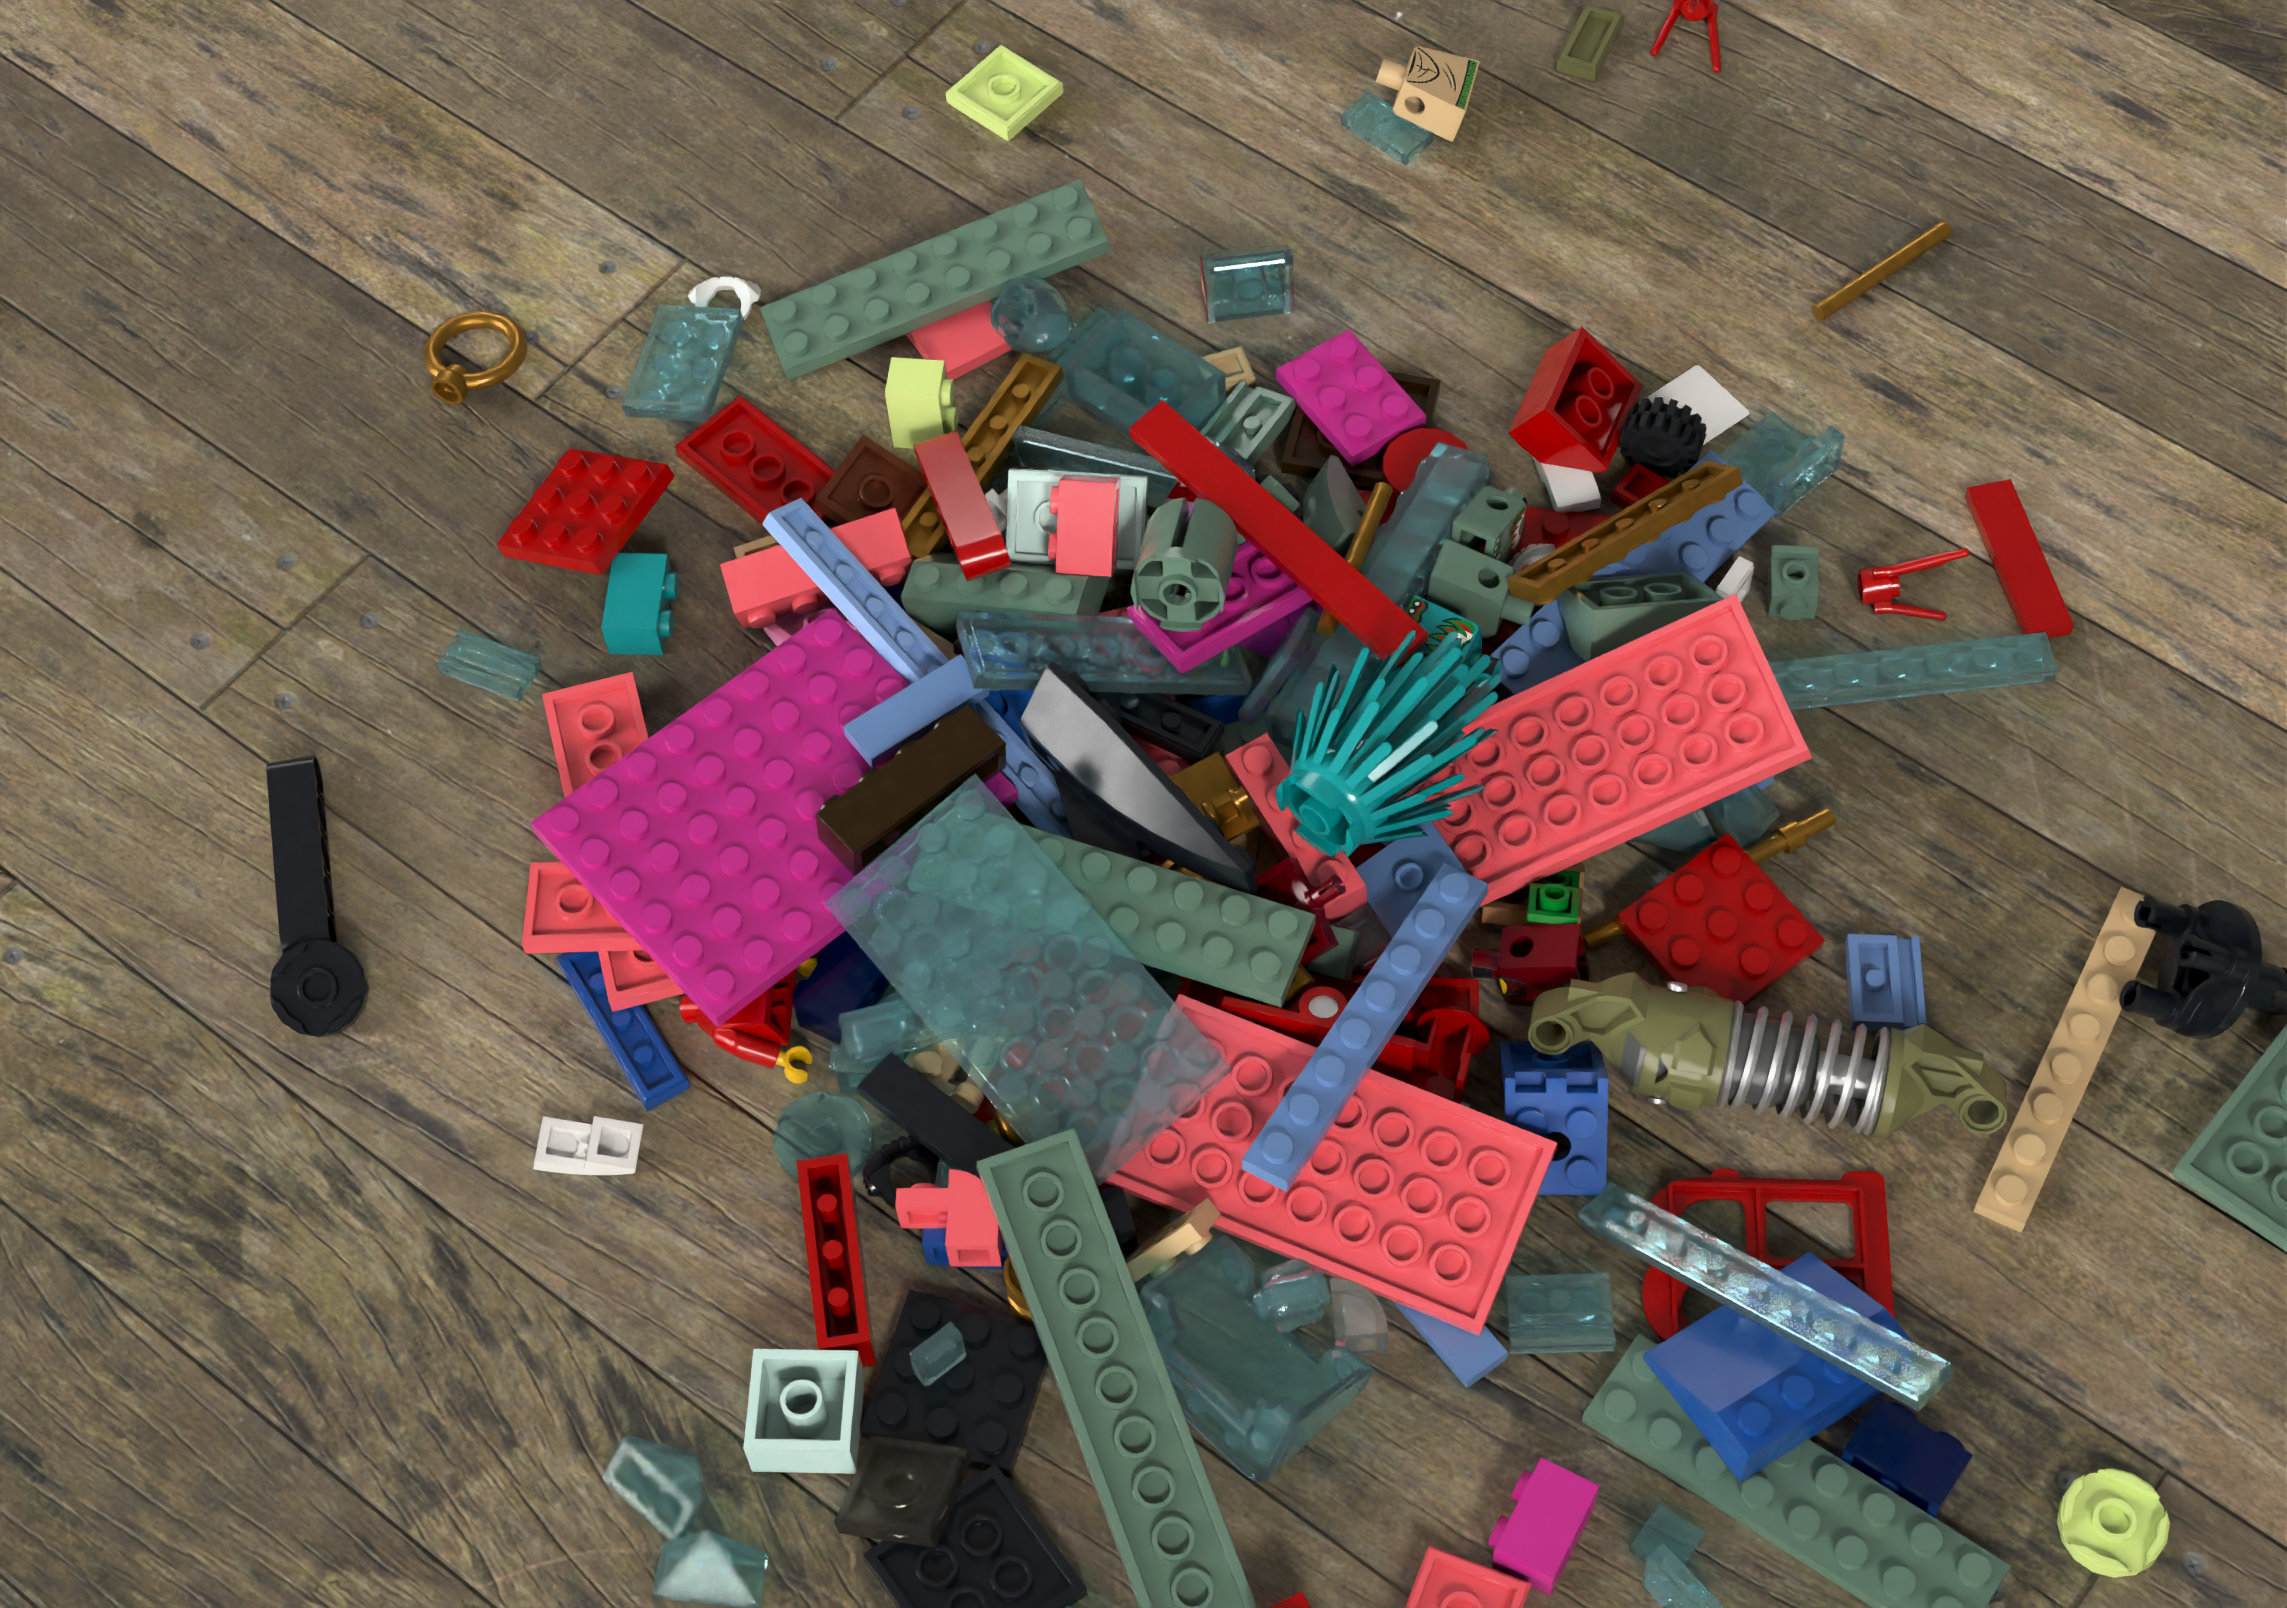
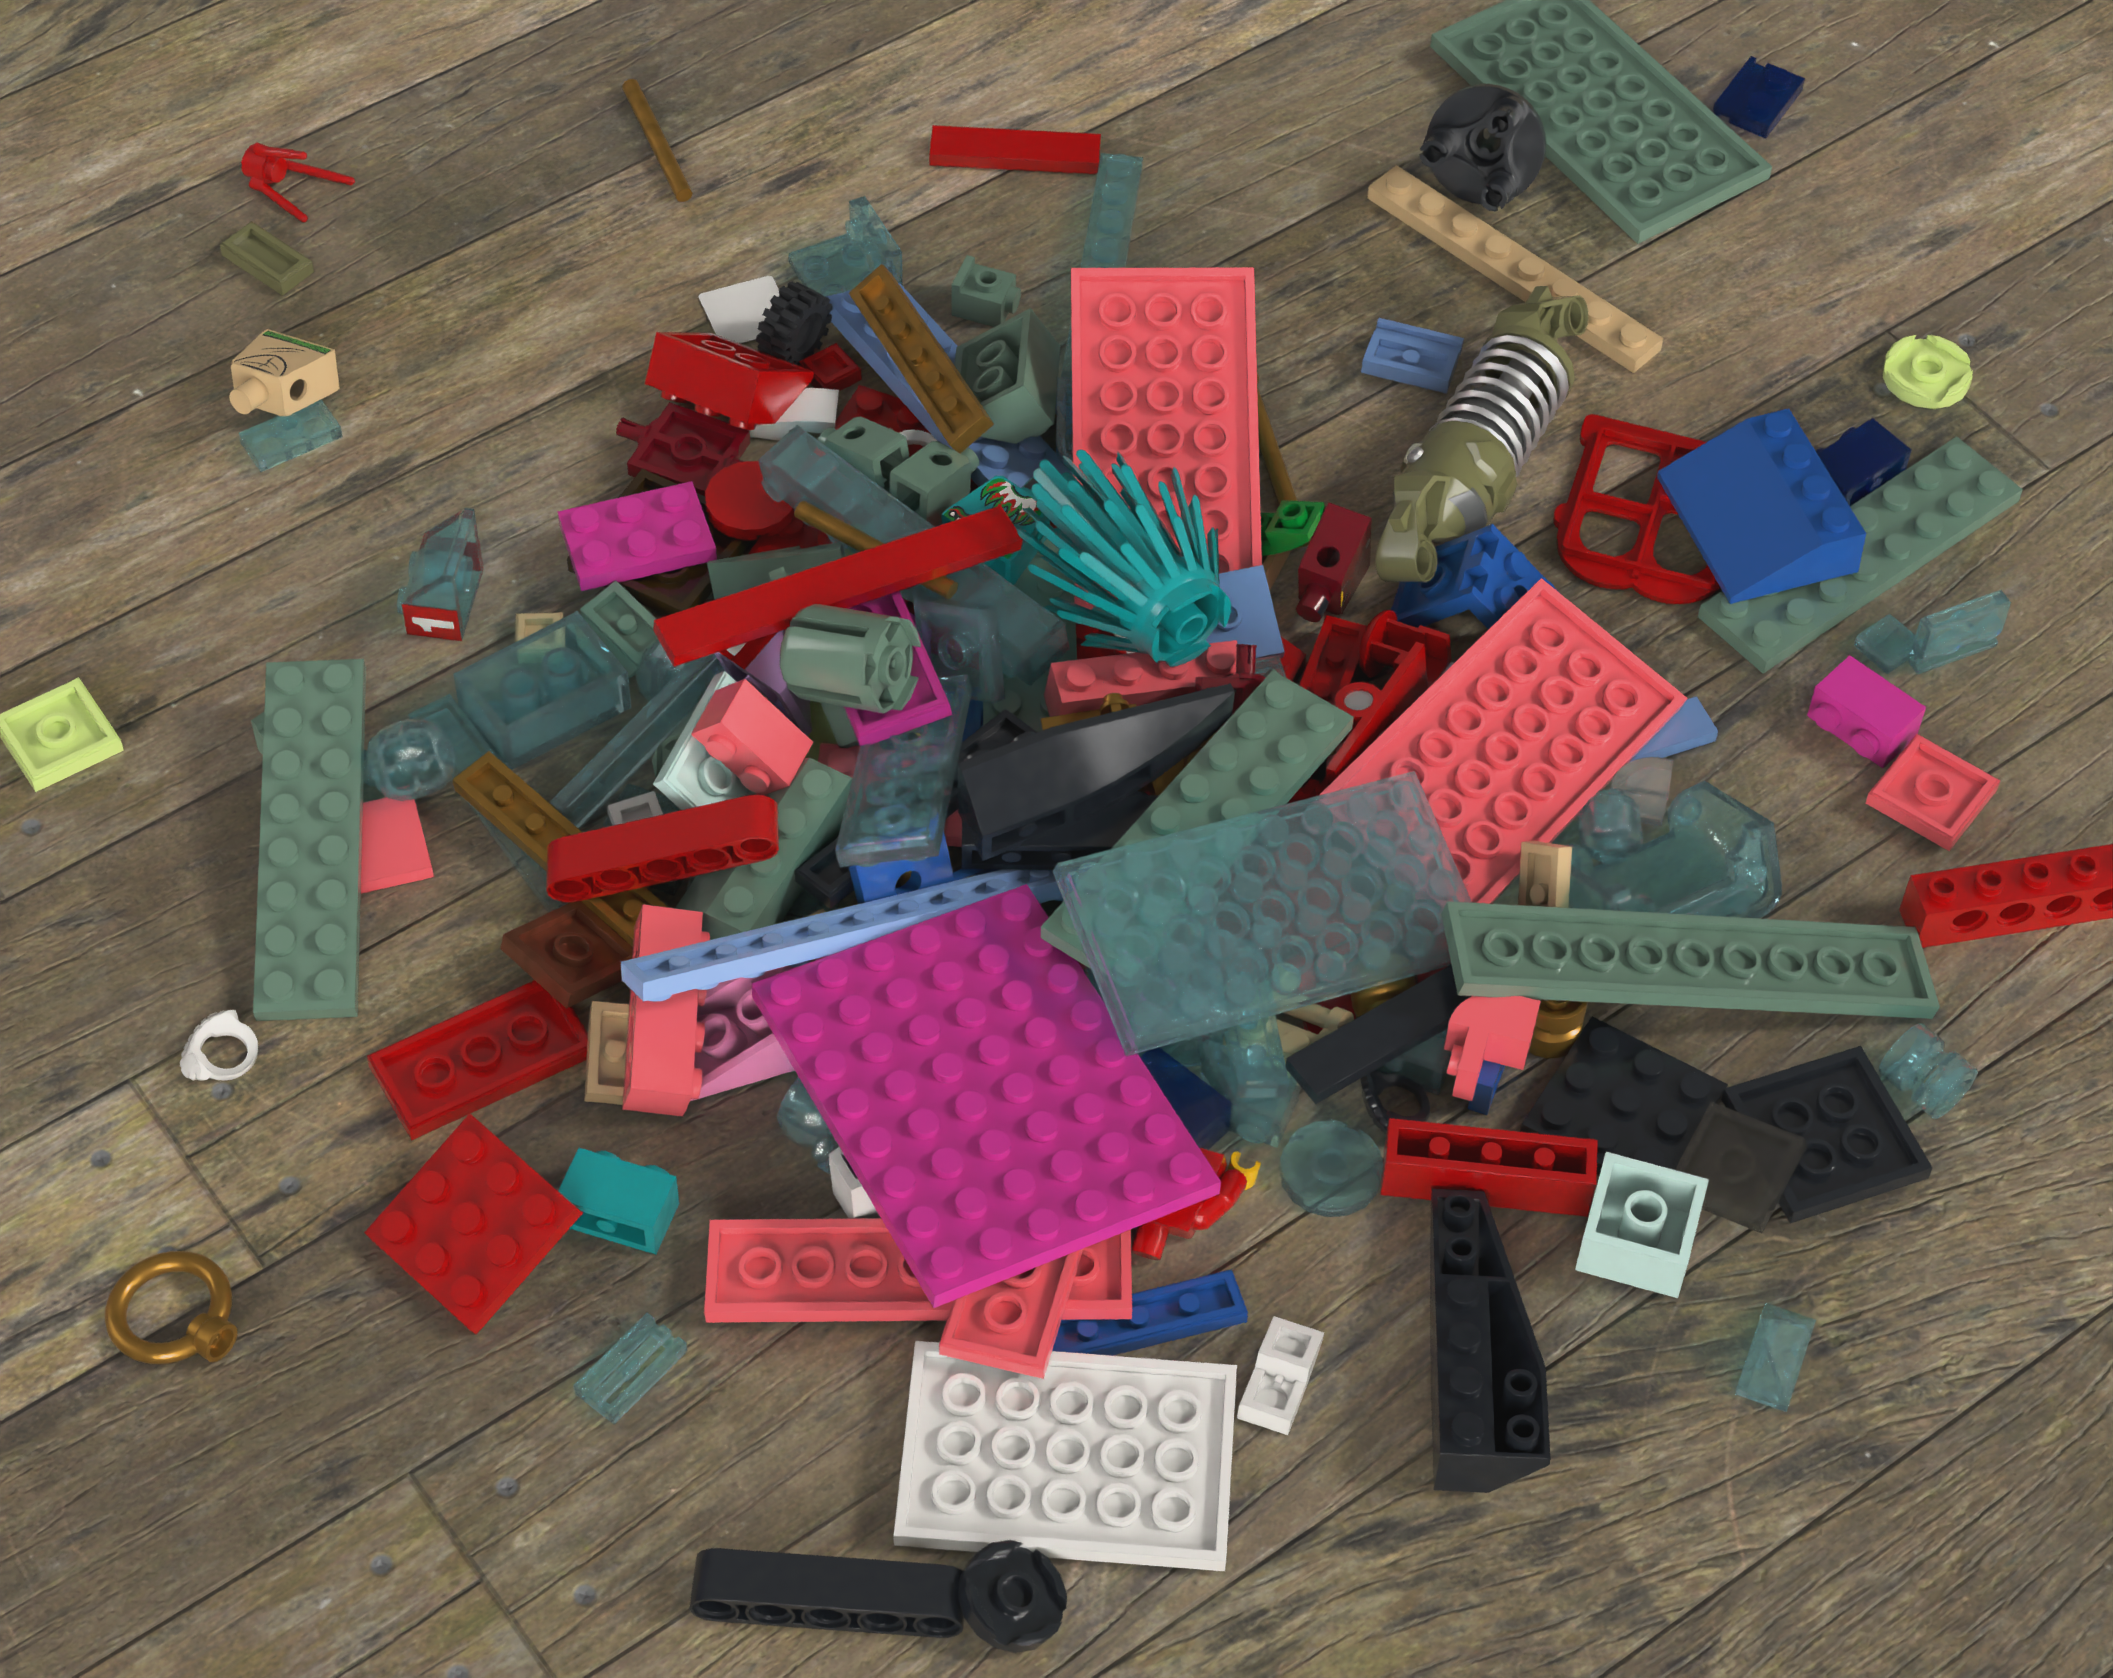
camera: 80 degrees left, 5 degrees down
(457, 1010) = (1081, 1465): none -> white plate
(631, 1293) = (1483, 1354): none -> black wedge
(657, 1483) = (1681, 1376): clear light blue slope -> none
(683, 363) = (299, 1097): clear light blue plate -> none
(908, 787) = (1021, 949): dark brown brick -> none
(913, 711) = (919, 931): medium blue tile -> none
(919, 401) = (481, 880): yellowish green brick -> none
(938, 1354) = (1616, 1095): clear light blue tile -> none
(1364, 1028) = (1398, 668): medium blue plate -> none
(1481, 405) = (684, 446): none -> dark red plate
(1559, 1313) = (1672, 646): clear light blue plate -> none
(1720, 925) = (1328, 442): red plate -> none
(1737, 580) = (969, 323): white tile -> none
(1767, 1296) = (1716, 488): clear light blue plate -> none
(1882, 583) = (1008, 239): red plant -> none

